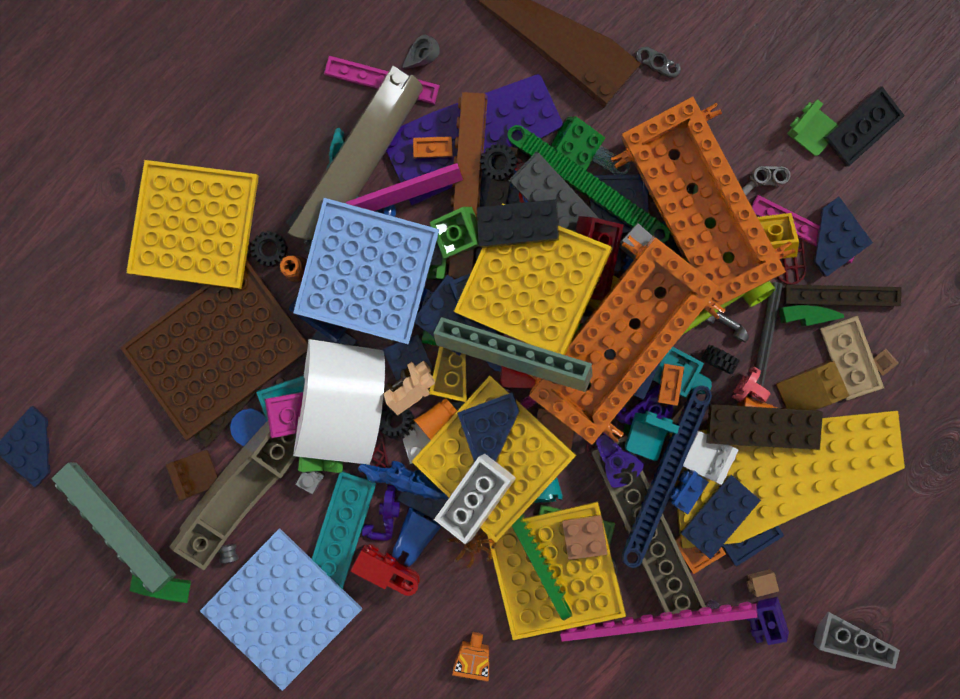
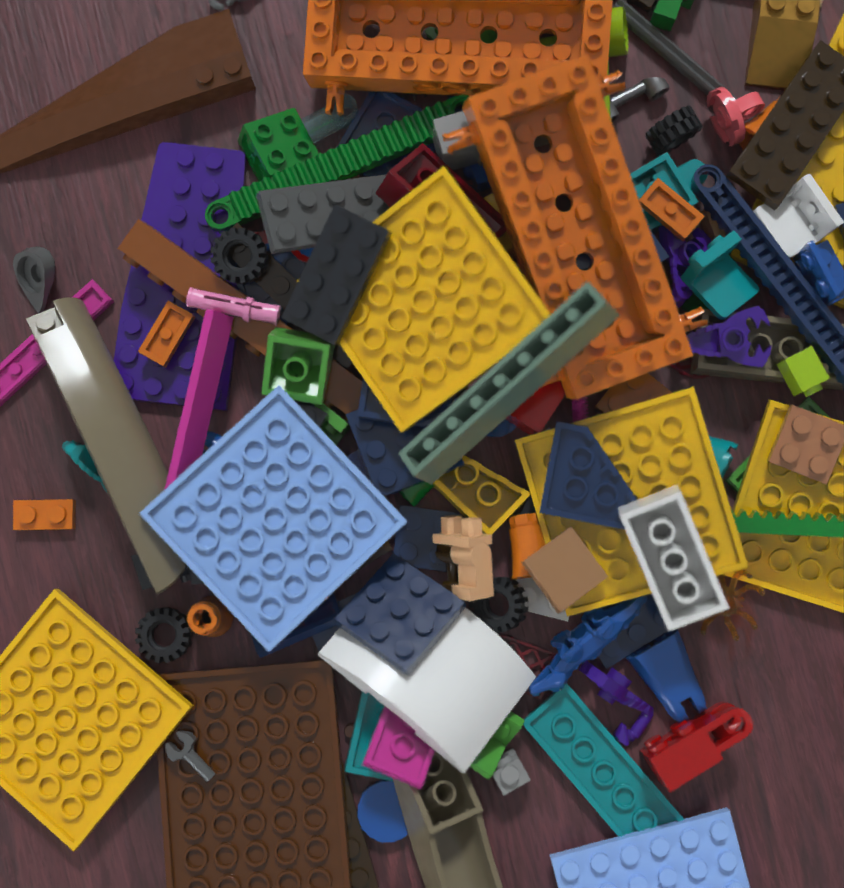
camera: 55 degrees left, 5 degrees down
(214, 303) = (189, 754): none -> dark grey bar
(293, 142) = (44, 514): none -> orange plate
(357, 370) = (400, 613): none -> dark blue plate
(434, 444) = (564, 569): none -> medium nougat tile
(468, 176) = (245, 308): none -> bright pink pin
(622, 511) = (803, 372): none -> lime brick

